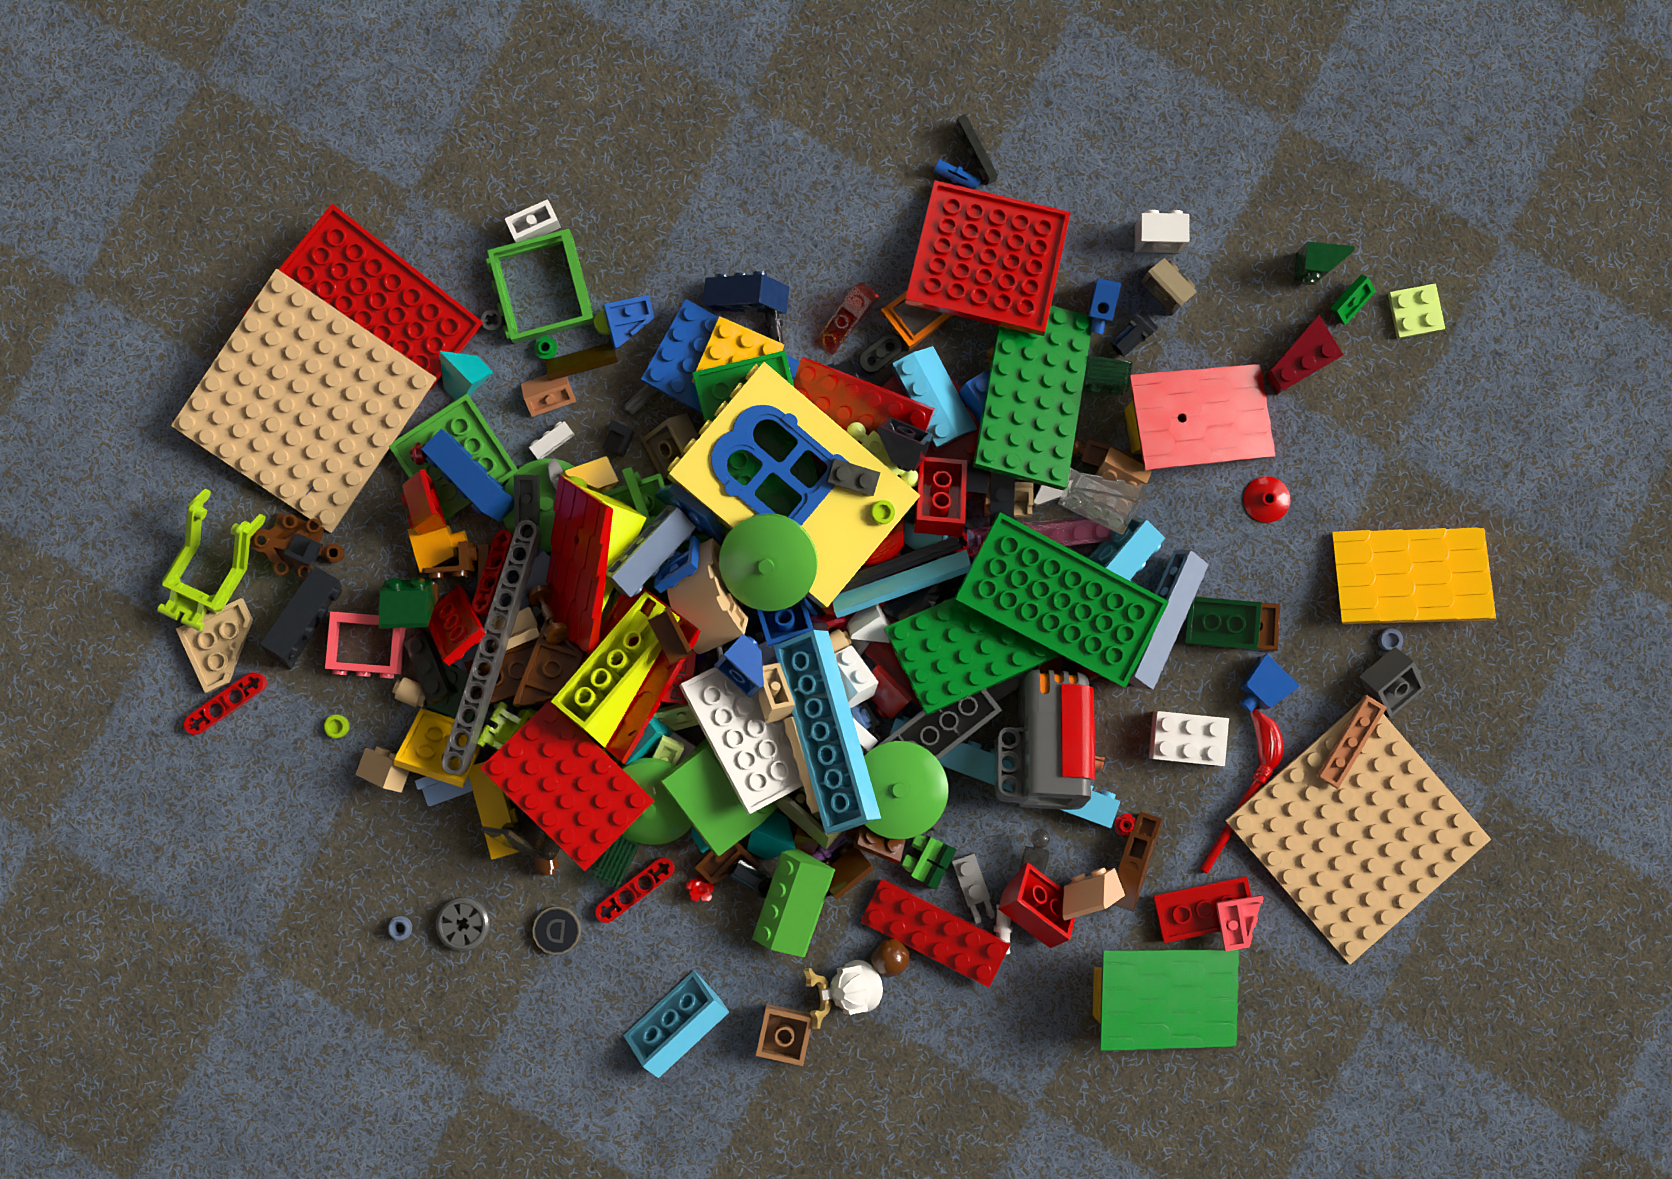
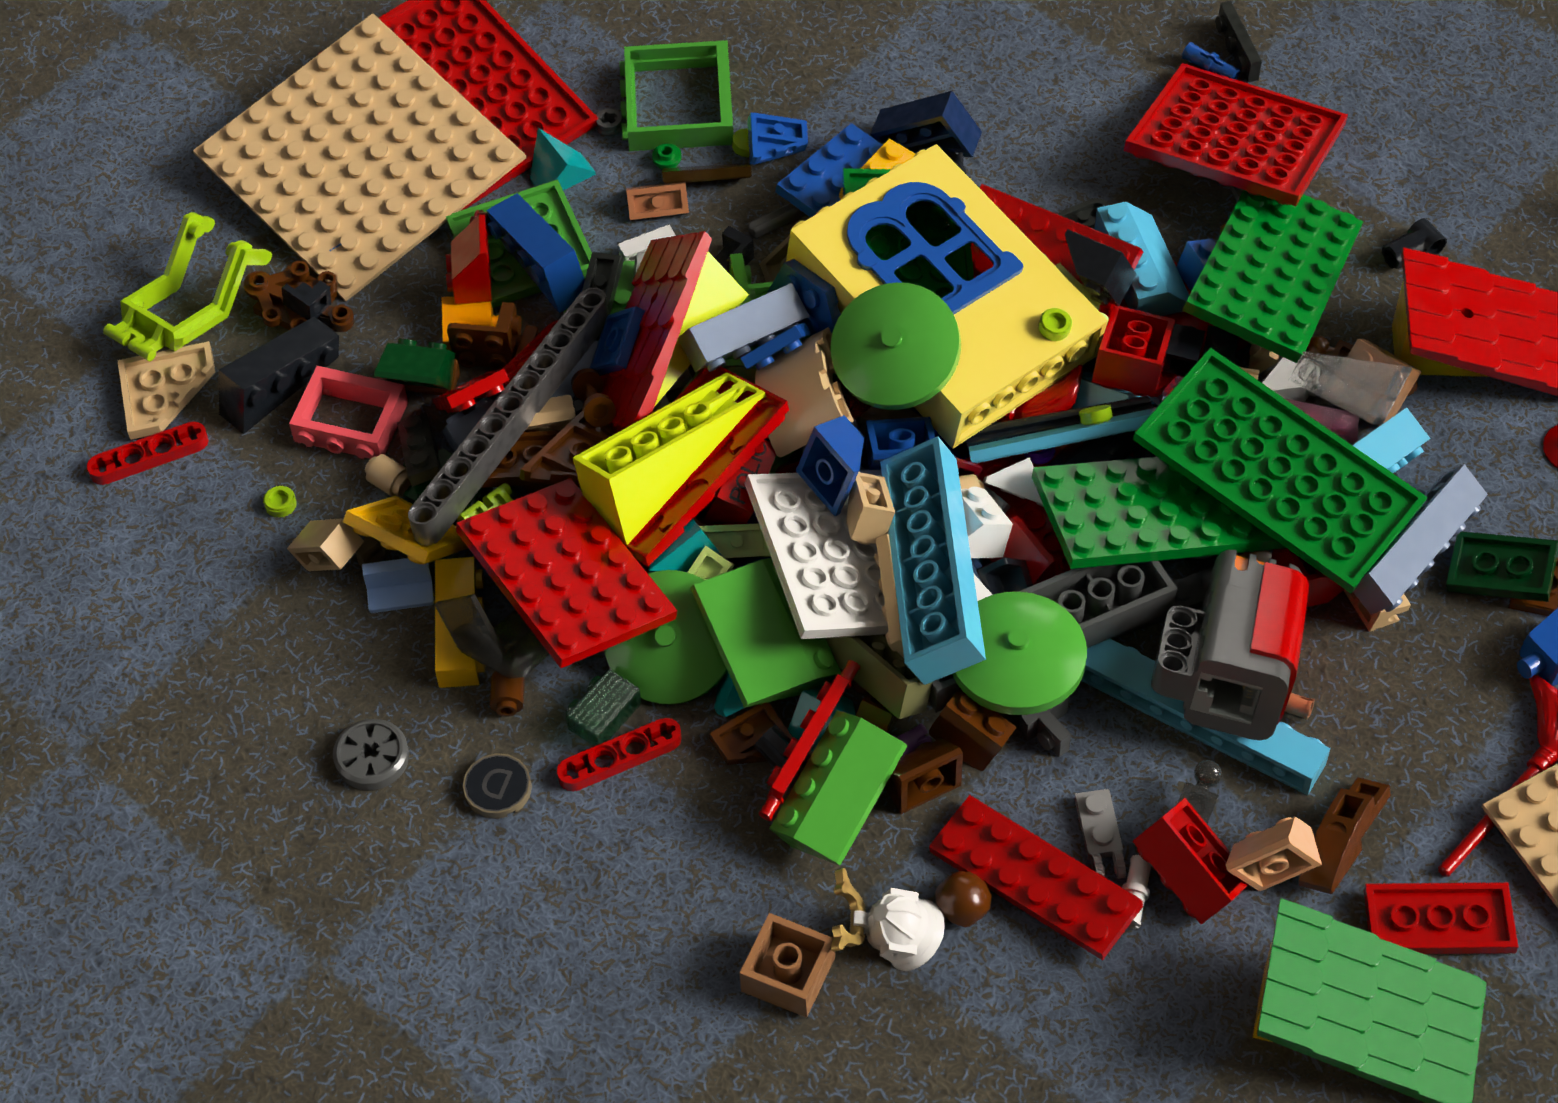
camera: 15 degrees right, 30 degrees down
(392, 928) = (280, 737): sand blue plate -> none
(533, 222) = (686, 26): white brick -> none
(554, 564) = (617, 340): none -> blue tile
(670, 636) = (750, 400): reddish brown panel -> none
(675, 1024) = (634, 931): medium azure slope -> none
(699, 889) = (710, 767): red plant -> none
(767, 865) = (798, 749): none -> red plate
(847, 317) = (1052, 172): clear red slope -> none
(853, 477) = (1024, 276): pearl dark grey plate -> none
(879, 713) = (1006, 576): none -> black panel
(911, 321) = (1138, 182): window -> none
(921, 566) = (1095, 414): none -> lime tile
(922, 868) = (1046, 785): bright green hips -> none
(1104, 293) = (1376, 207): blue torso -> none
(1107, 375) = (1371, 279): clear green brick -> none
(1119, 823) = (1326, 786): red plate -> none
(1162, 232) = (1461, 142): white brick -> none
(1169, 285) = (1463, 199): dark tan slope -> none
(1188, 738) = (1439, 695): white brick -> none
(1237, 921) = (1488, 929): coral wing -> none

